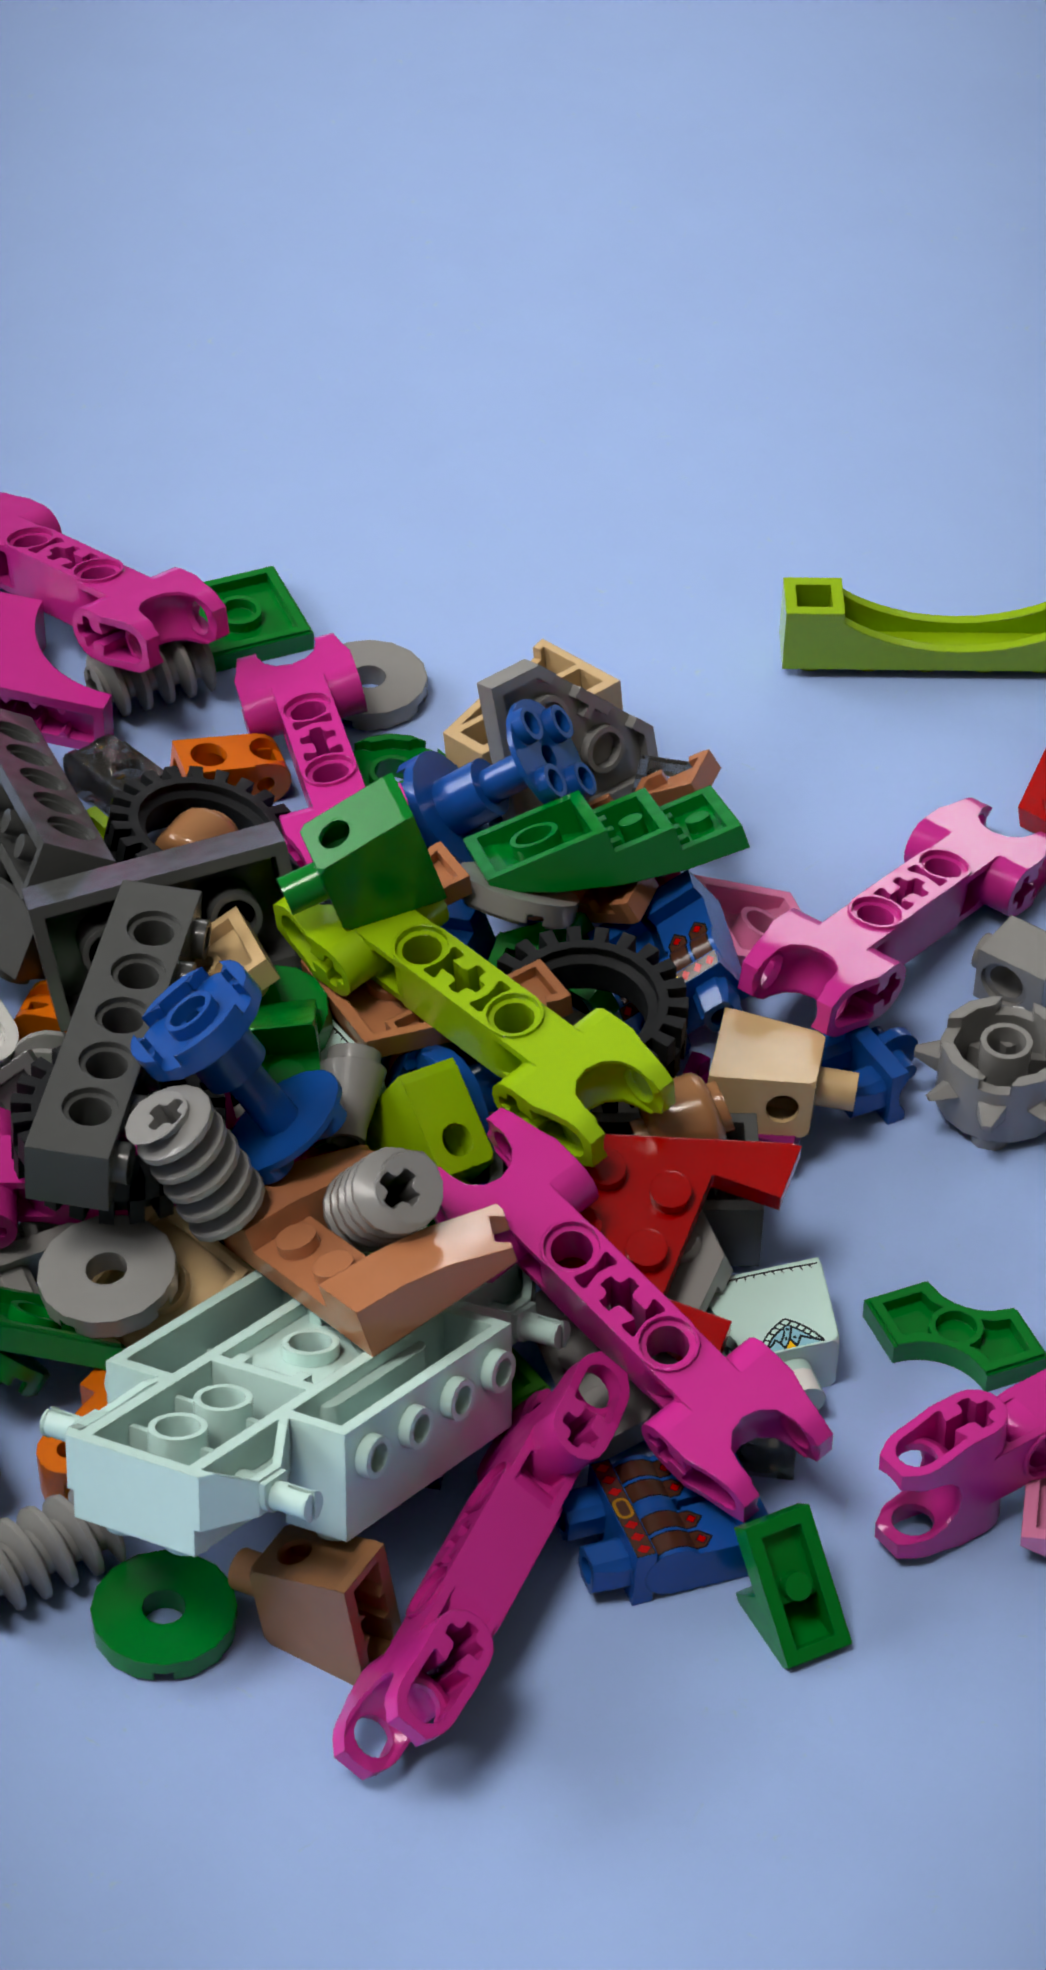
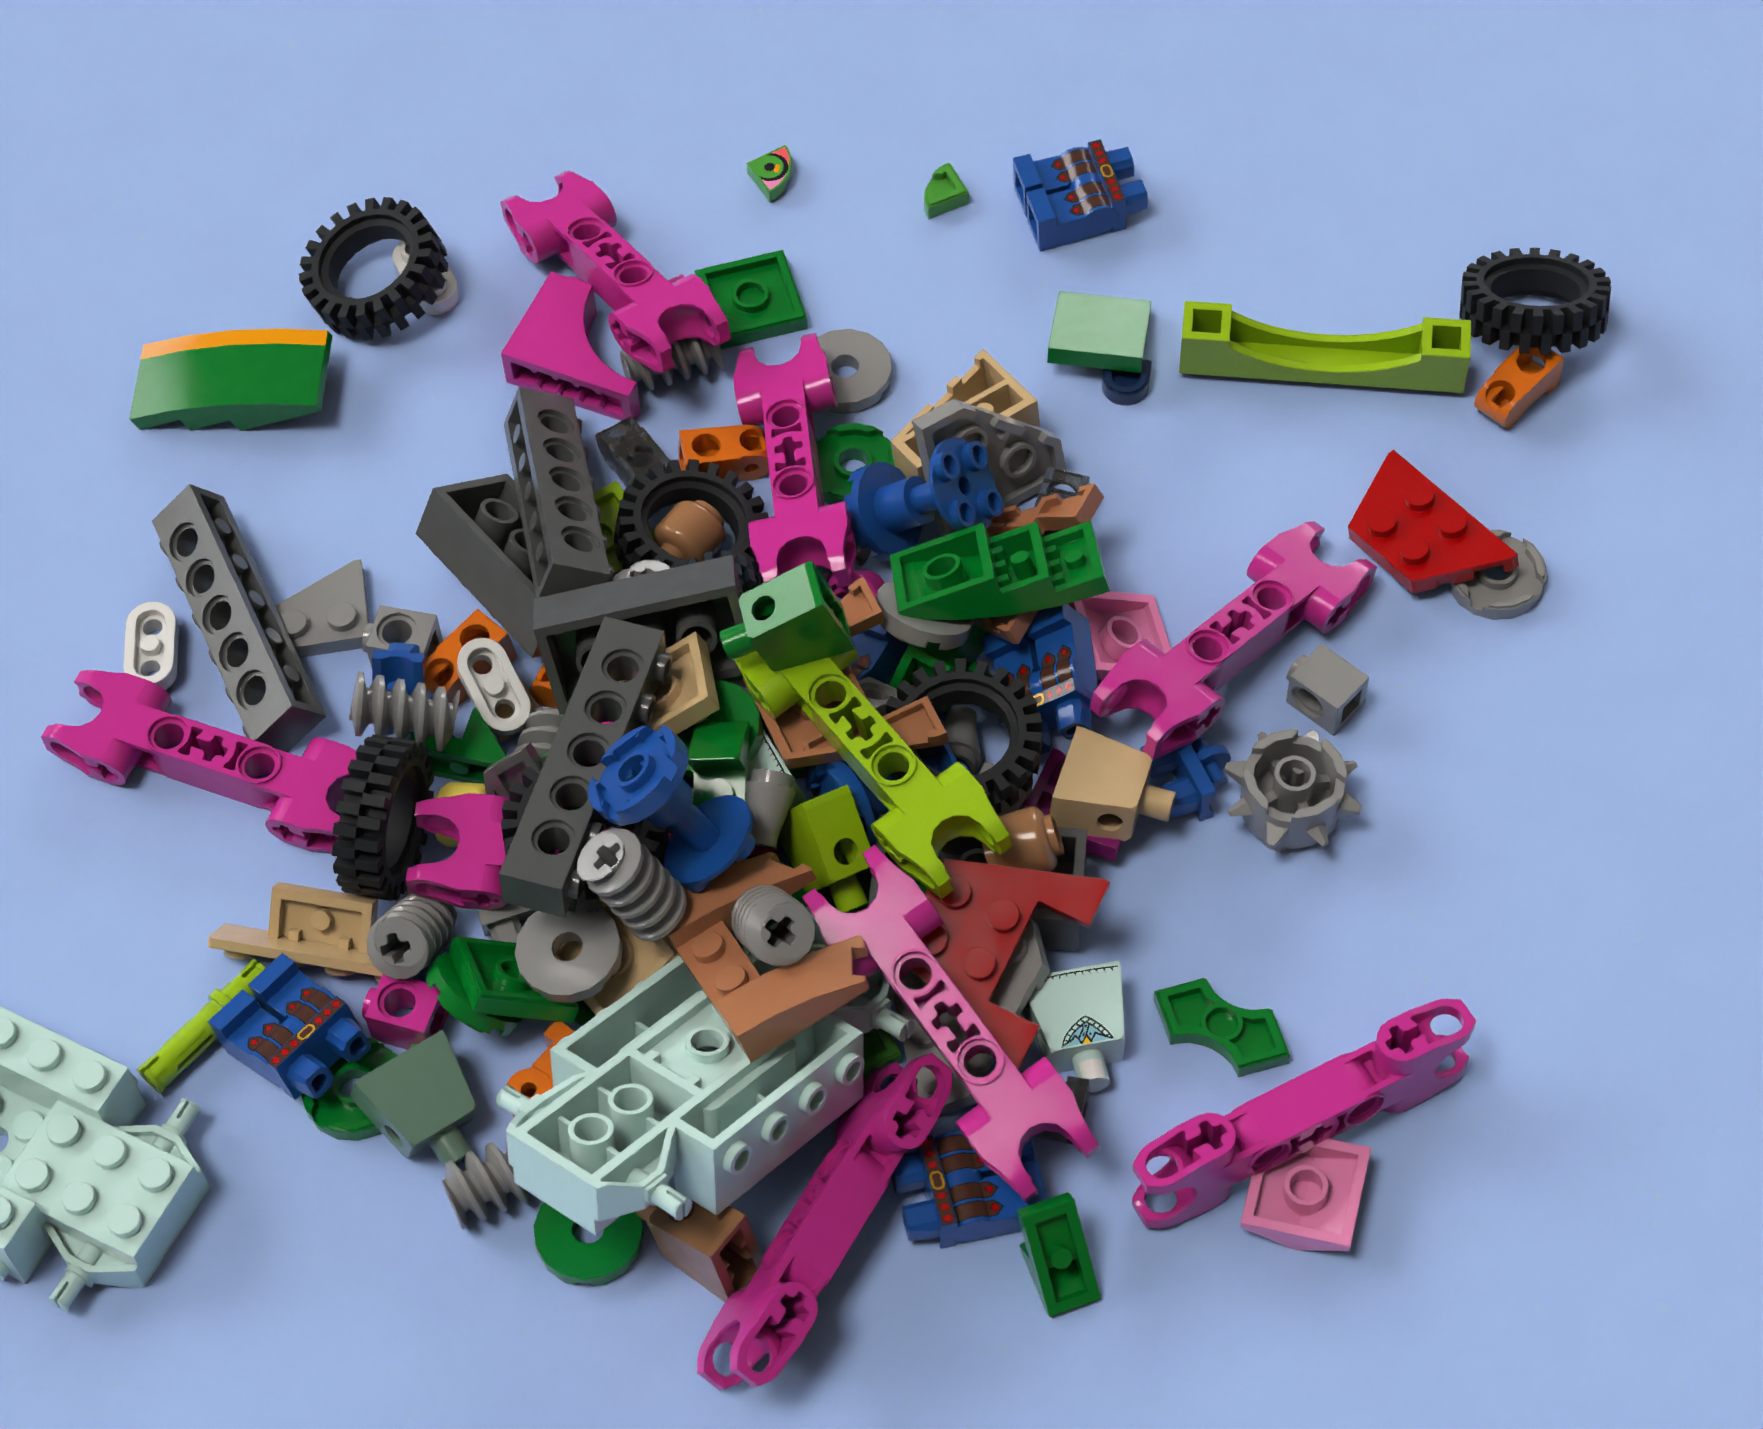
camera: 10 degrees right, 15 degrees up
(246, 493) = (771, 172): none -> bright green tile
(465, 504) = (944, 192): none -> bright green tile
(628, 494) = (1077, 193): none -> blue hips
(679, 628) = (1099, 332): none -> tile
(717, 678) = (1125, 386): none -> dark blue tile

